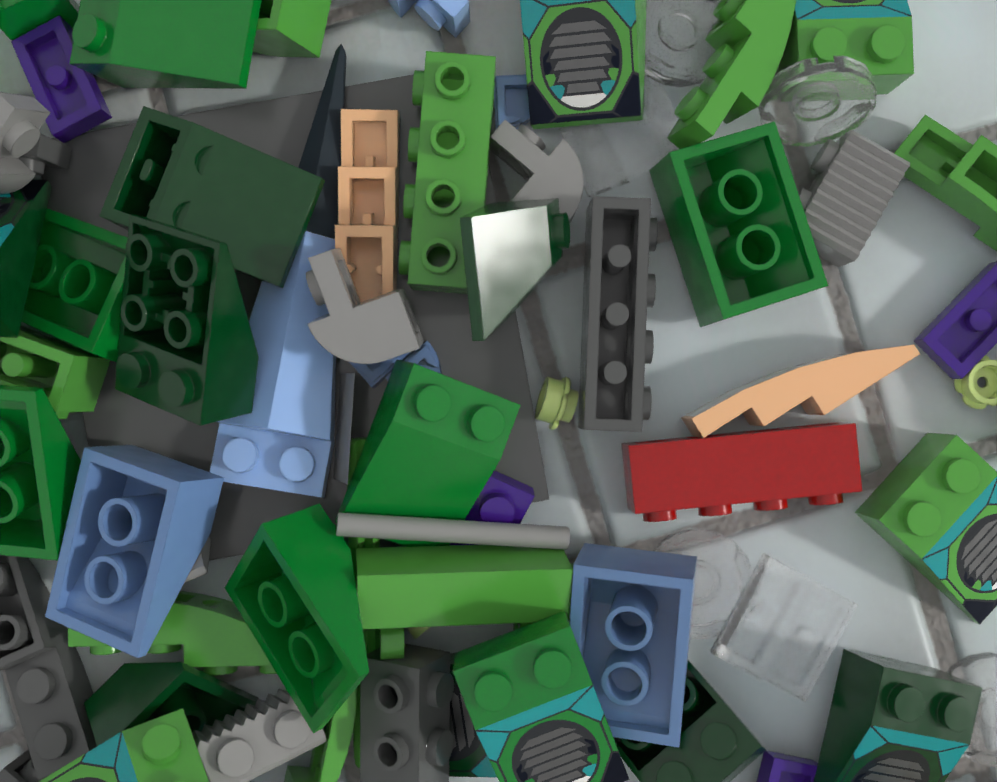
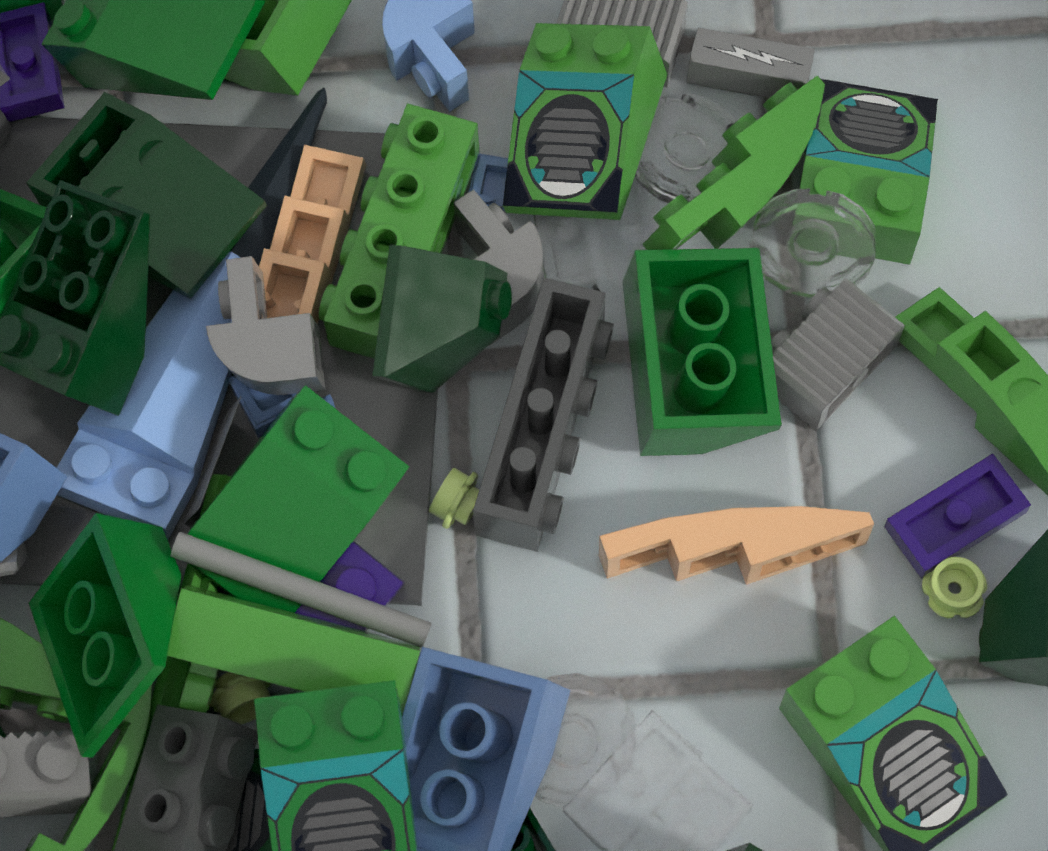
camera: 20 degrees right, 20 degrees down
(741, 468) = (647, 614): red brick -> none

